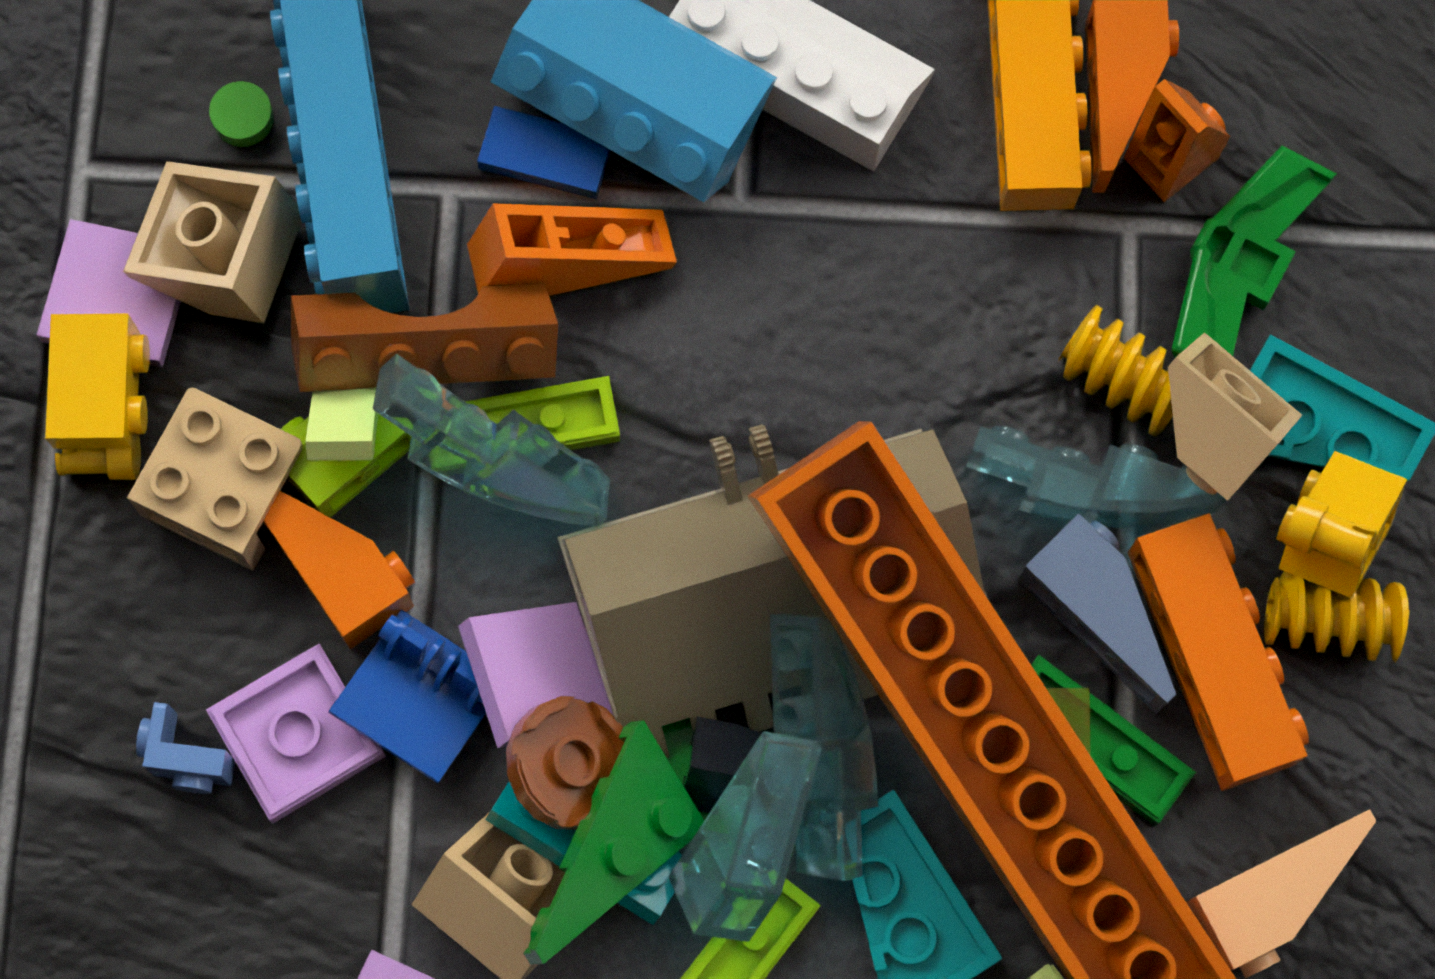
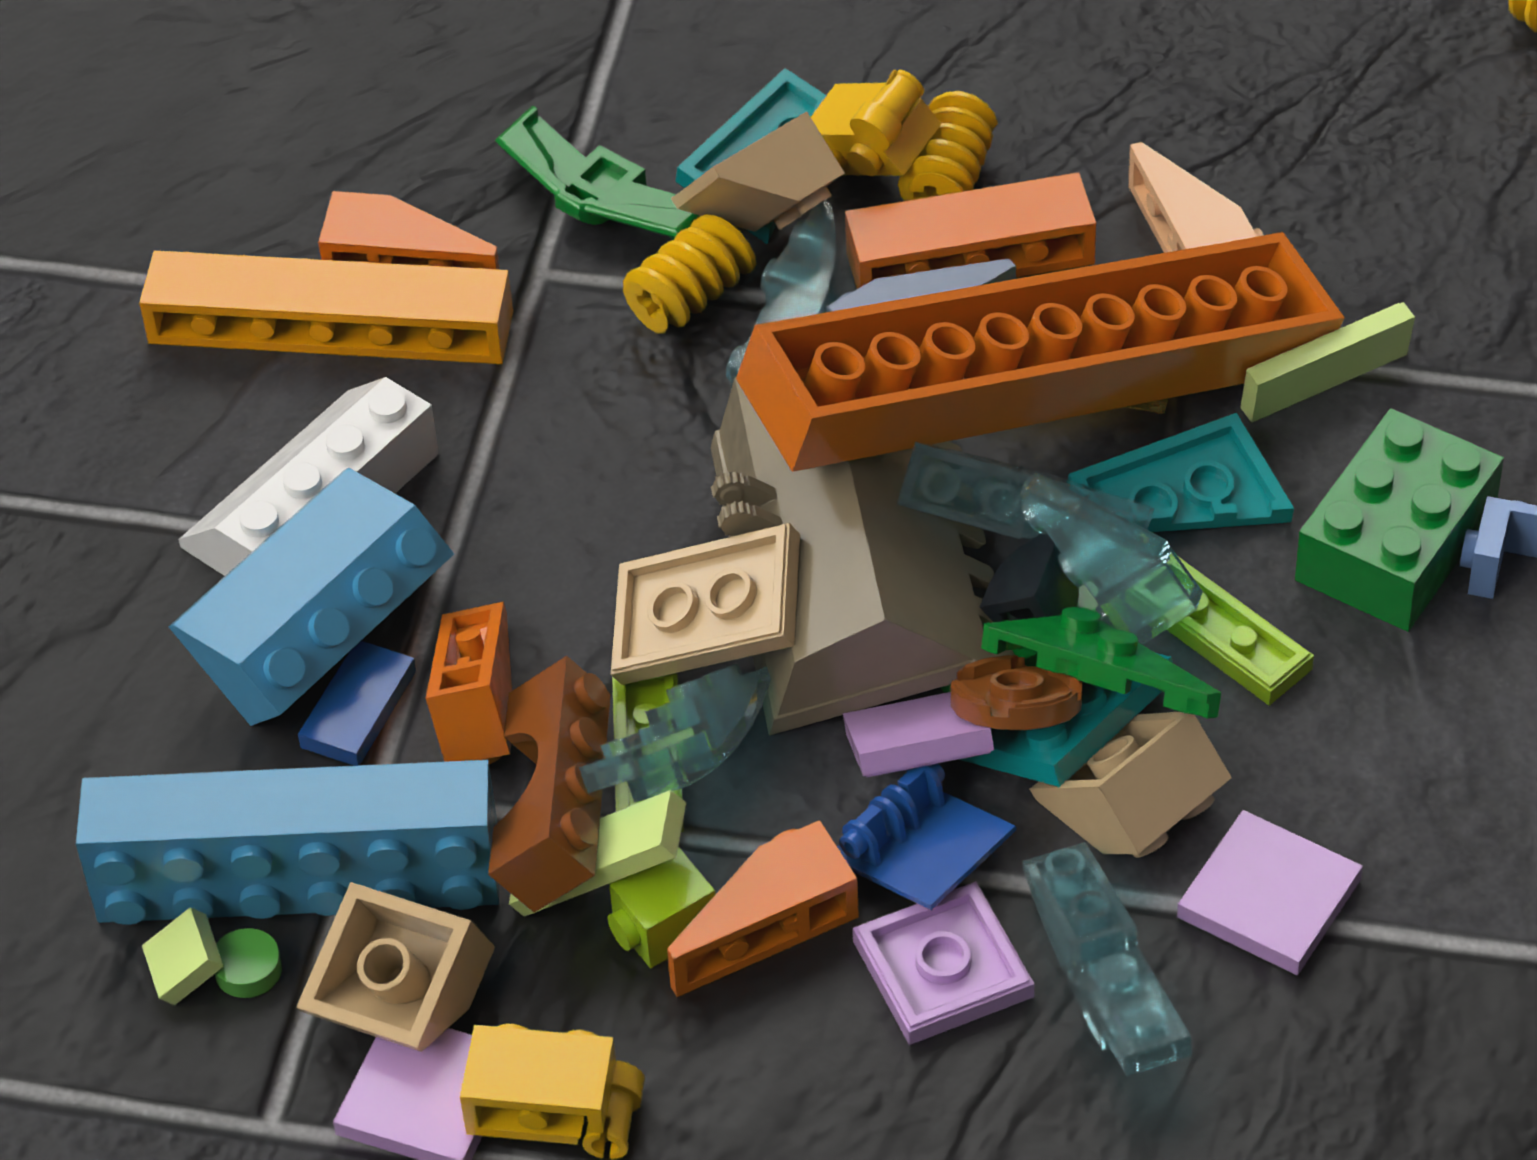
camera: 75 degrees left, 25 degrees down
(190, 767) = (953, 1066): medium blue bracket -> none
(215, 476) = (670, 983): tan bracket -> none
(234, 57) = (182, 956): none -> yellowish green tile
(289, 885) = (1103, 961): none -> clear light blue slope
(644, 447) = (706, 604): none -> tan tile
(1175, 139) = (476, 184): orange slope -> none

